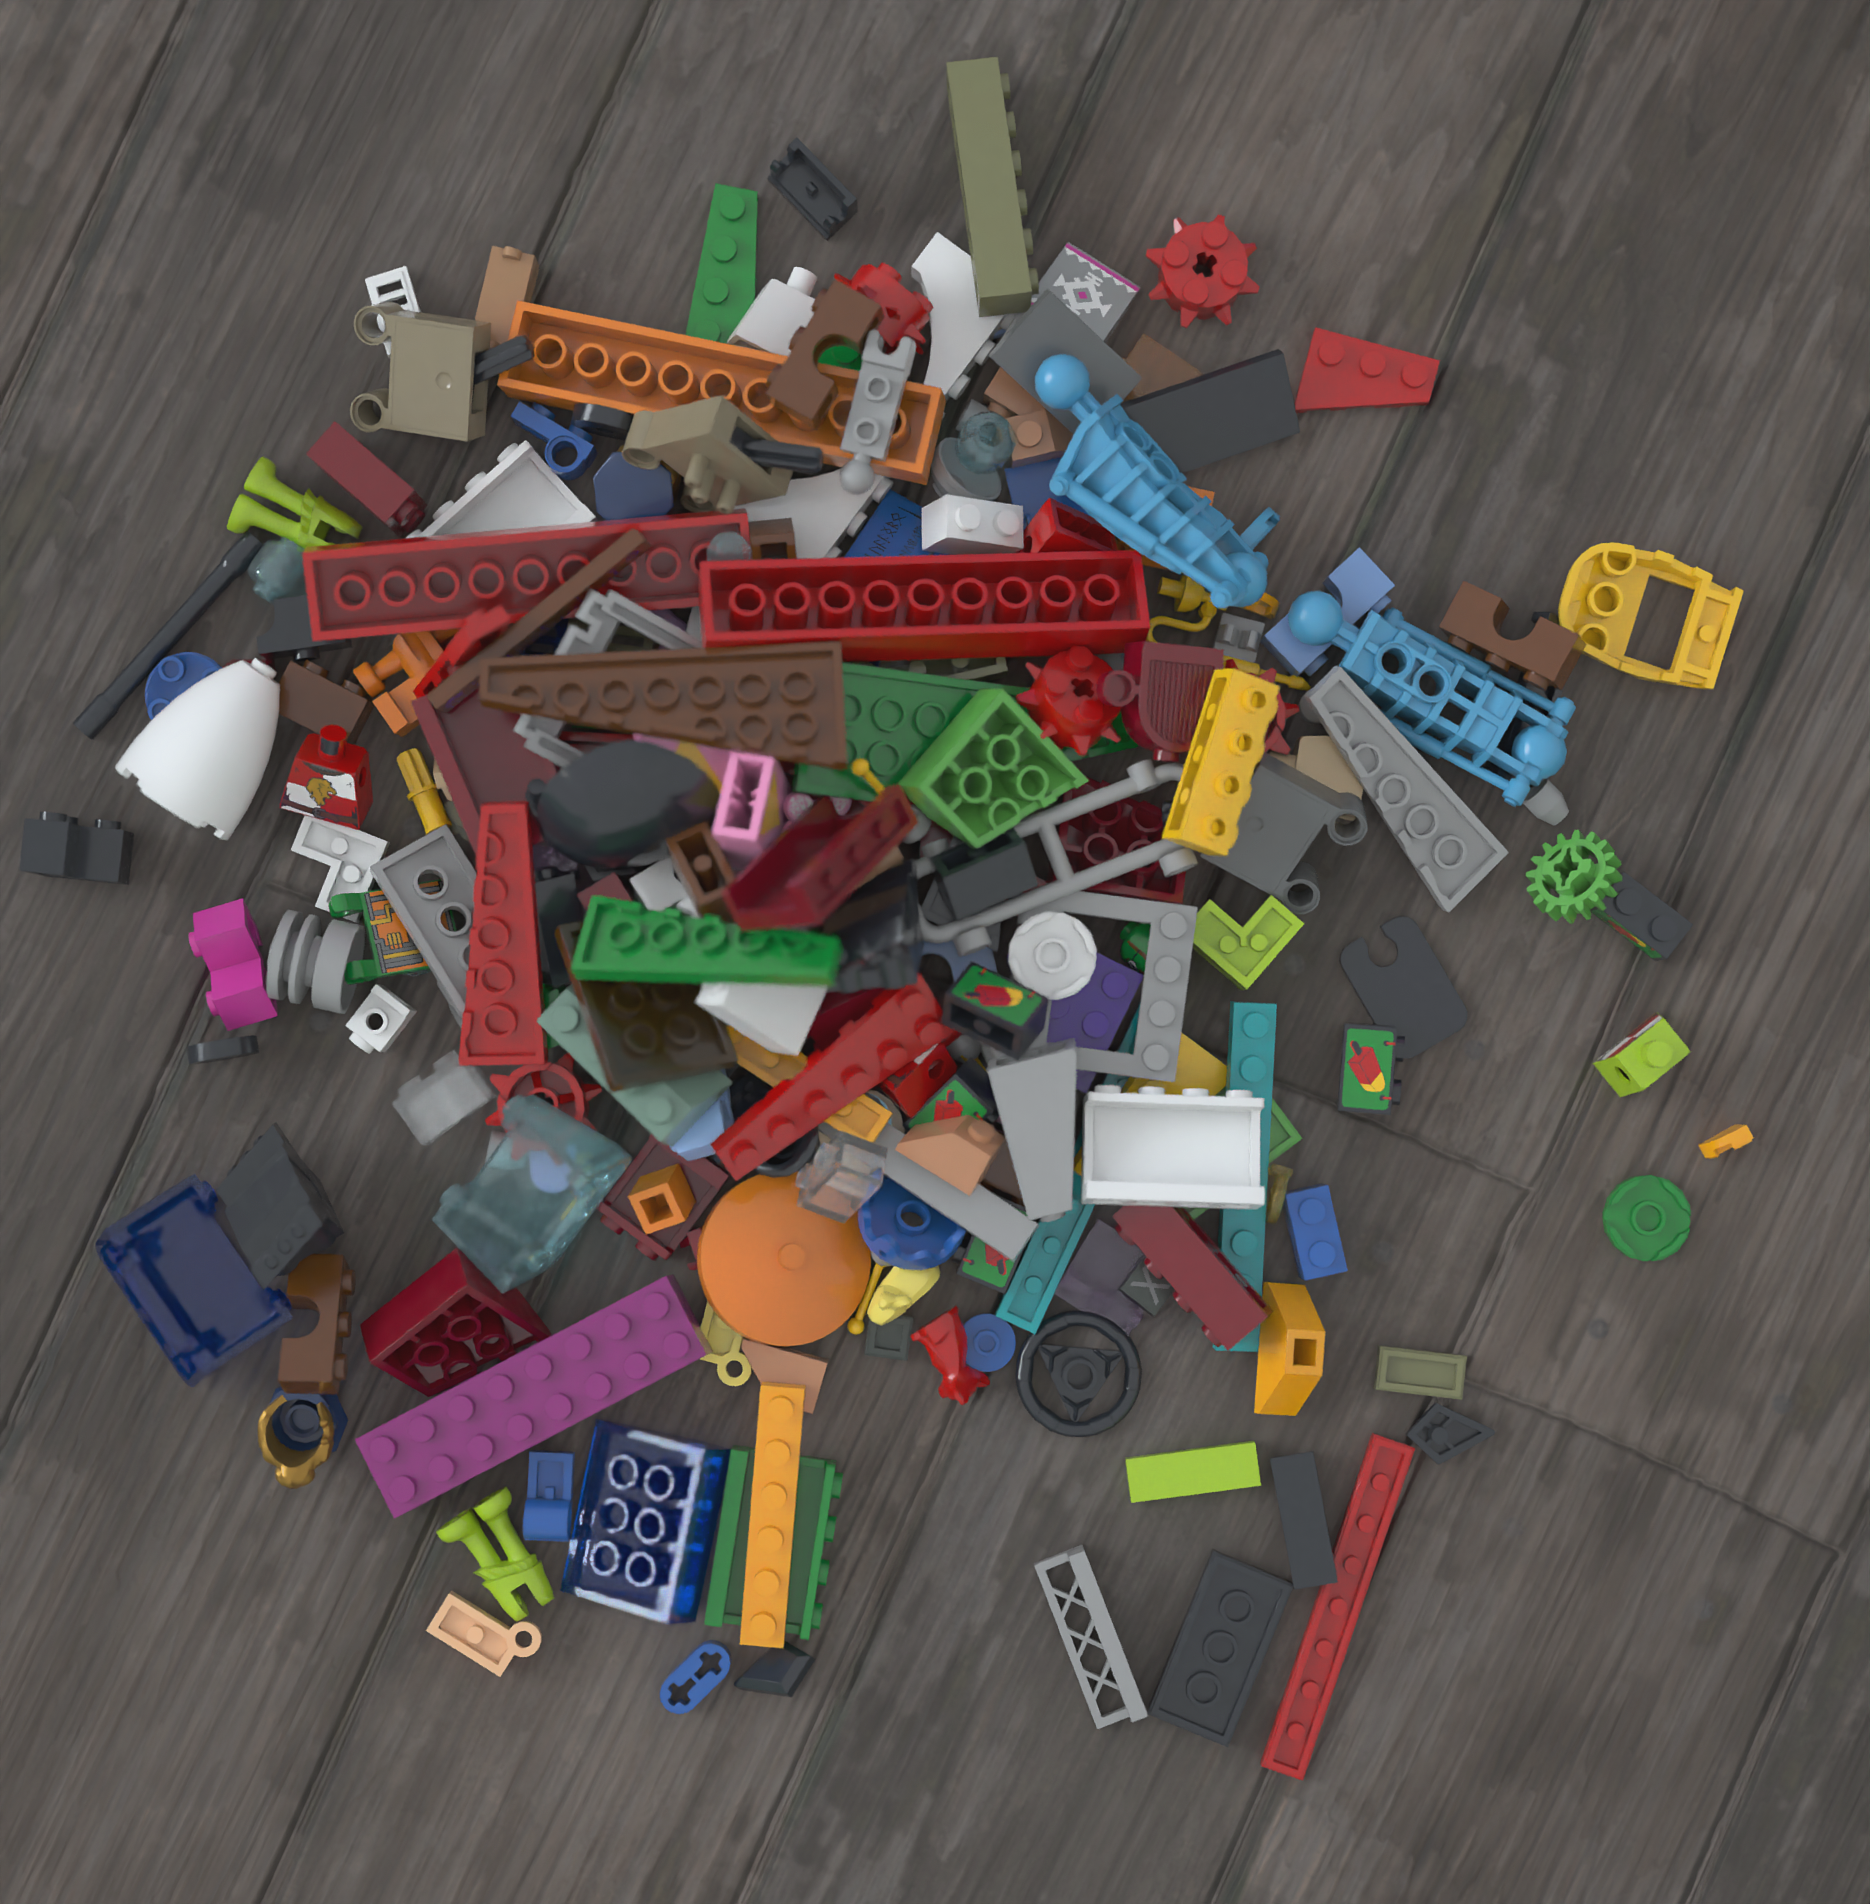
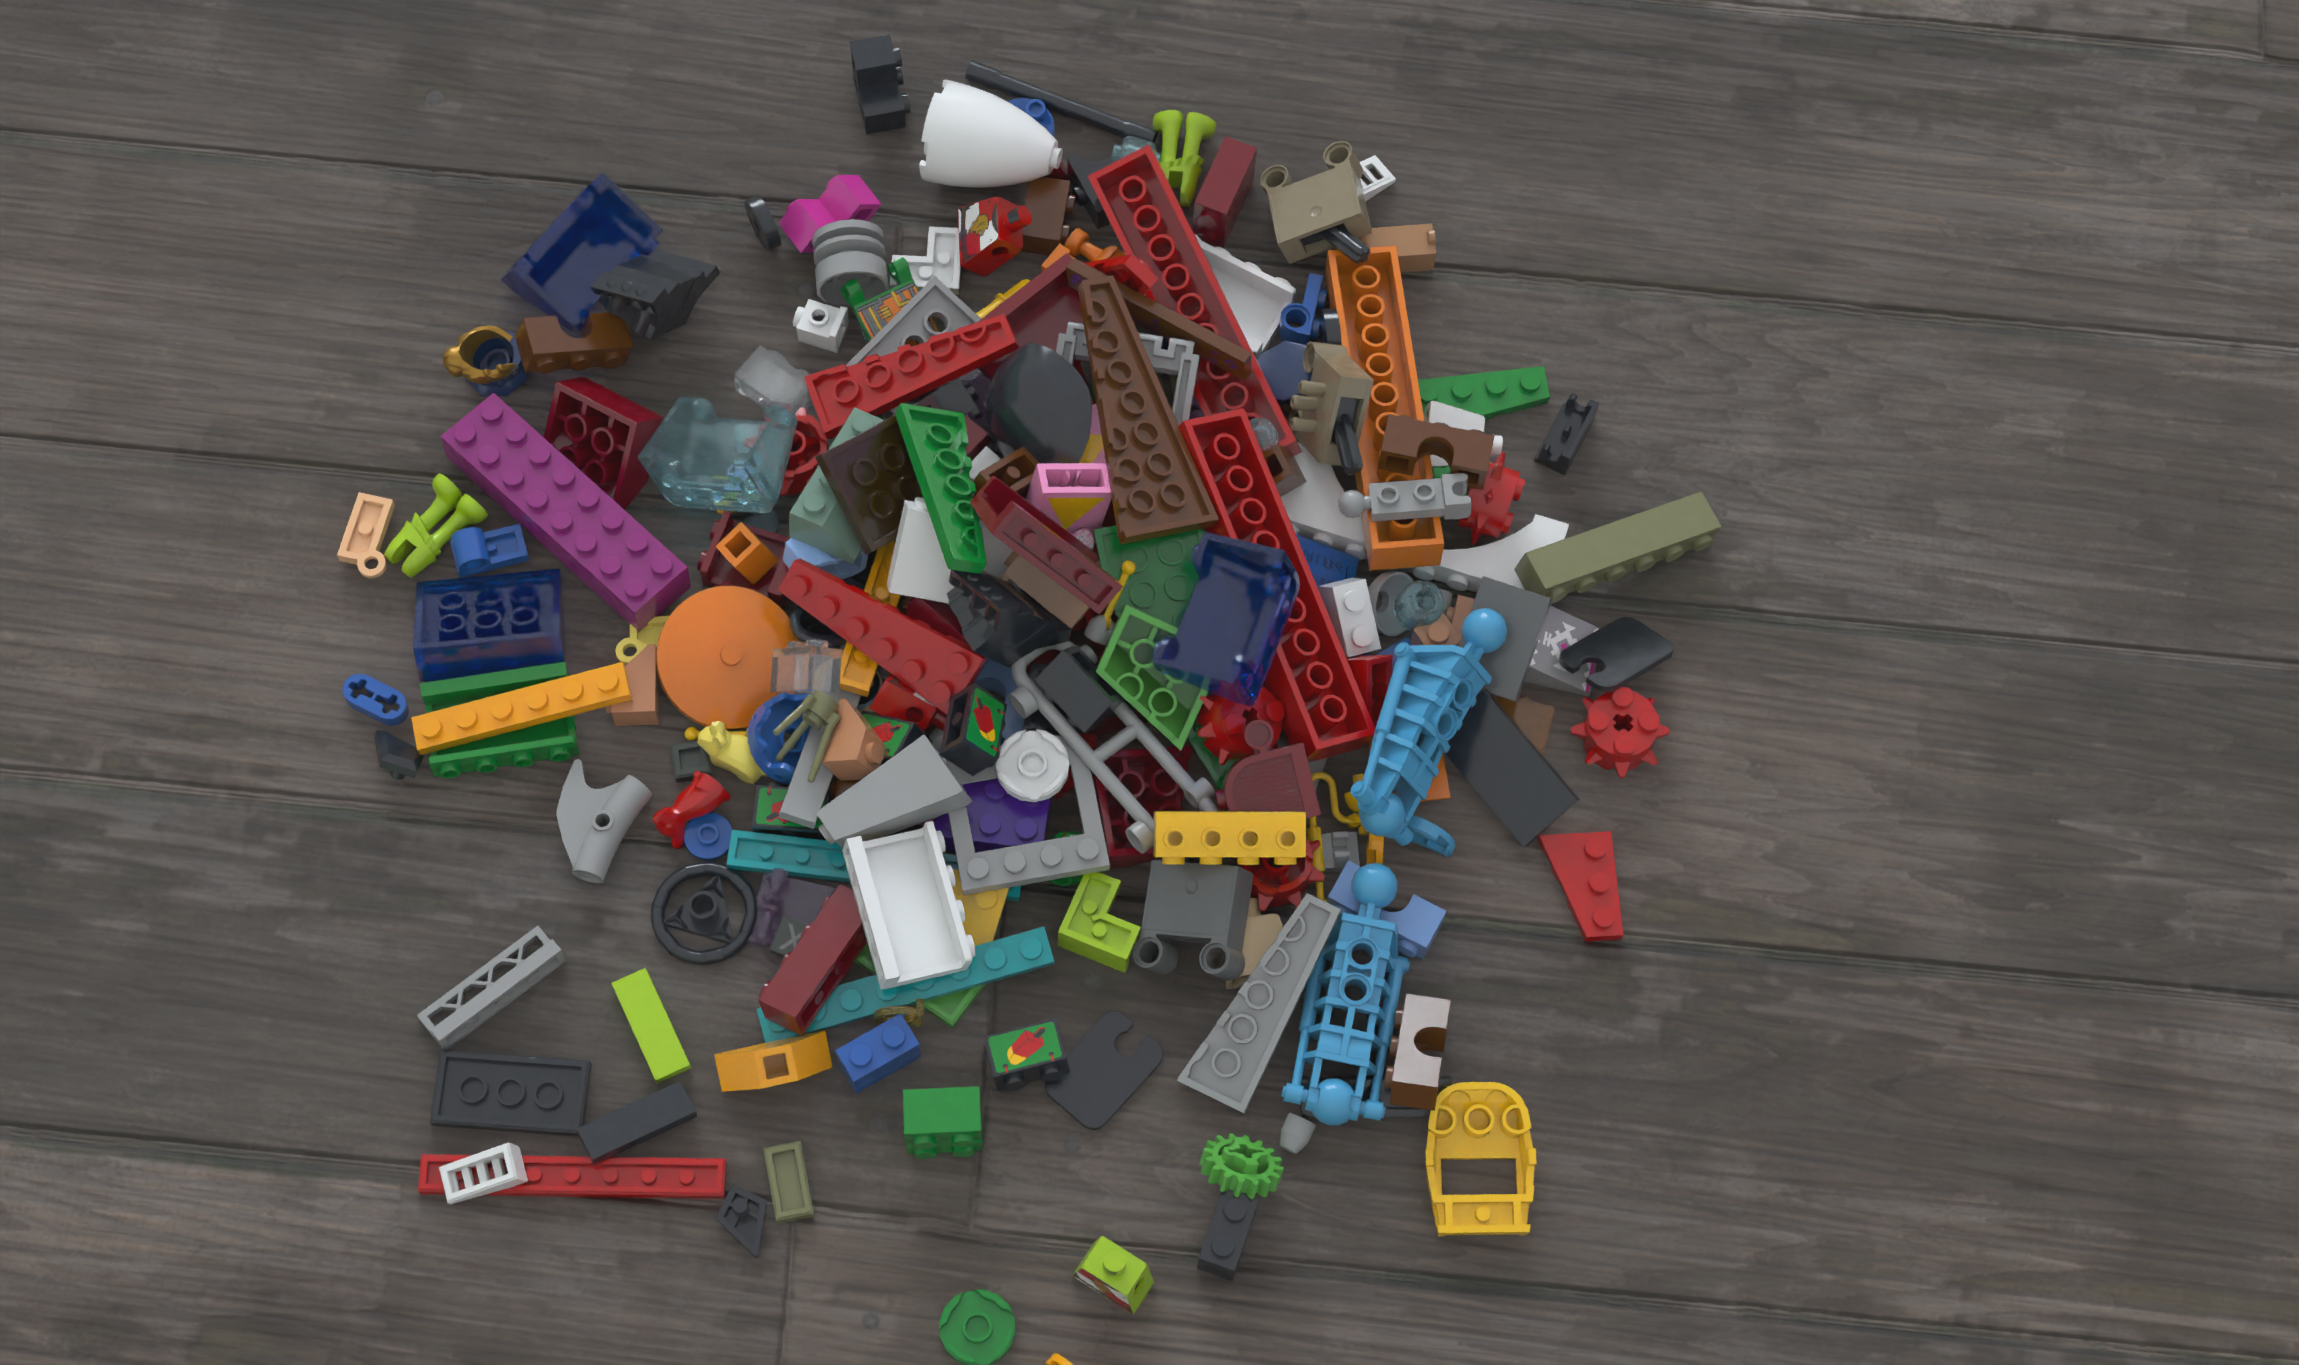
camera: 75 degrees right, 20 degrees down
(907, 1182) = (818, 711): none -> olive plant
(915, 1476) = (586, 811): none -> light grey pin
(979, 676) = (1231, 618): none -> clear blue windscreen
(1110, 227) = (1623, 649): none -> black piece
(1312, 1676) = (515, 1176): none -> white slope
(1422, 1186) = (942, 1121): none -> green piece

